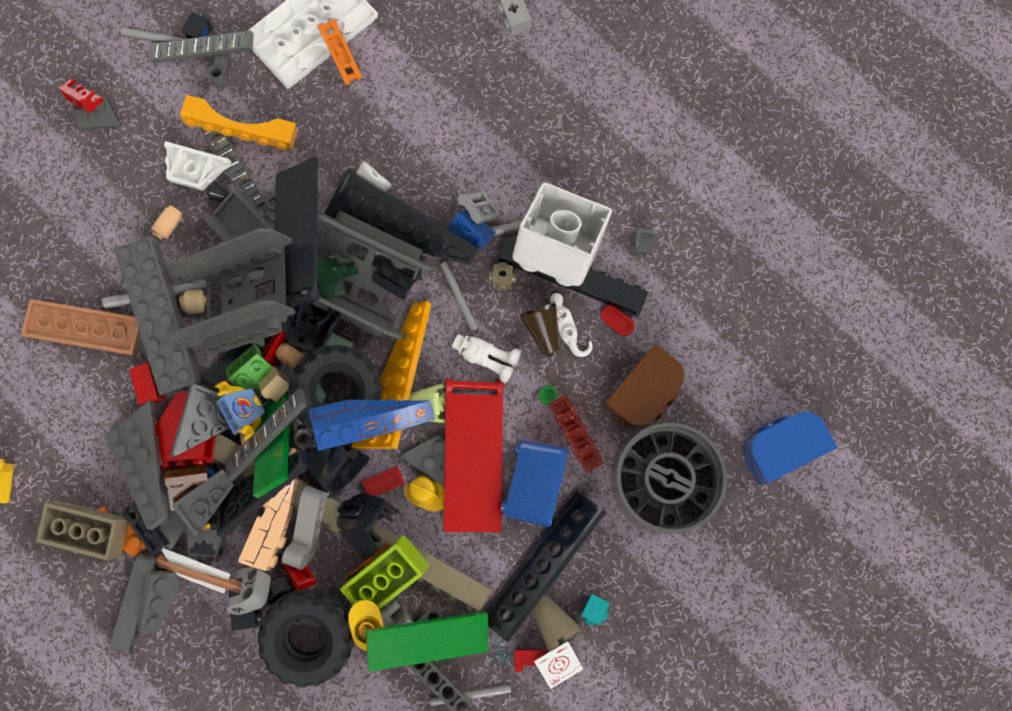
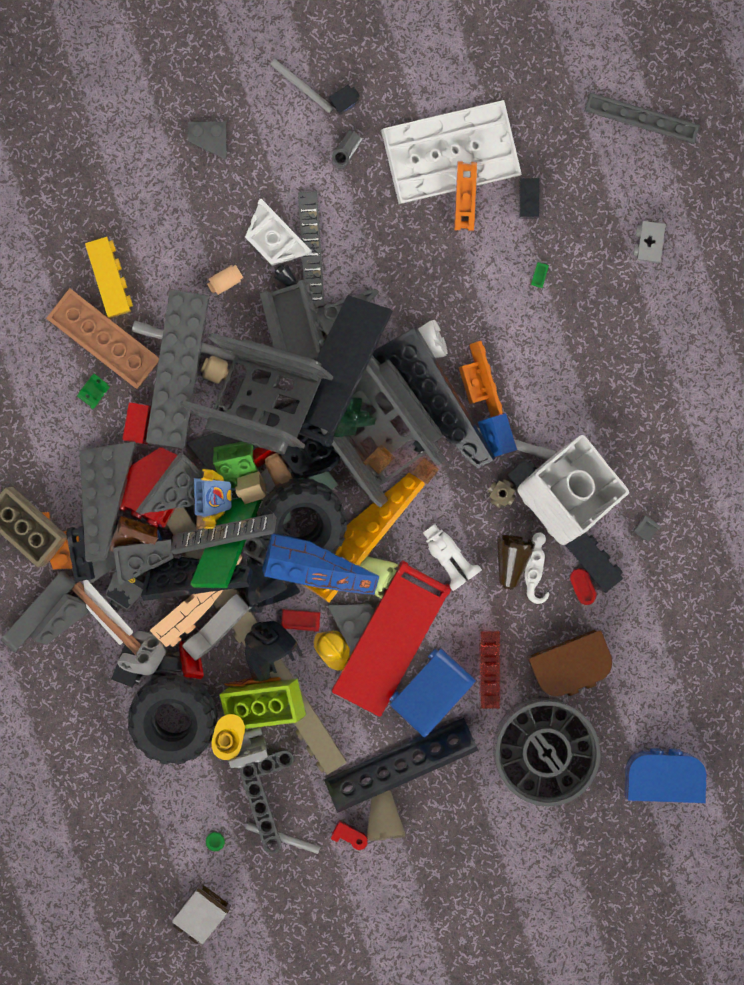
camera: 30 degrees right, 10 degrees up
(60, 272) = (108, 277): none -> yellow brick
(81, 96) = (204, 114): red hinge -> none
(93, 377) = (93, 391): none -> green piece
(202, 46) = (339, 124): dark grey tile -> none
(274, 133) = (366, 246): light orange arch -> none
(378, 302) = (379, 459): none -> clear orange panel
(393, 280) = (402, 447): black slope -> none
(394, 27) = (529, 198): none -> black brick
(425, 292) = (425, 470): none -> clear orange panel
(426, 641) = (271, 776): green tile -> none
(431, 192) = (479, 381): none -> orange bracket
(437, 85) = (539, 274): none -> green piece
(459, 297) = (453, 488): light grey bar -> none
(481, 211) = (515, 424): light grey plate -> none
(501, 652) = (327, 816): clear light blue bar -> none
(548, 394) = (485, 620): green tile -> none
(558, 665) = (370, 853): white sticker -> none
(595, 610) = (424, 825): teal brick -> none

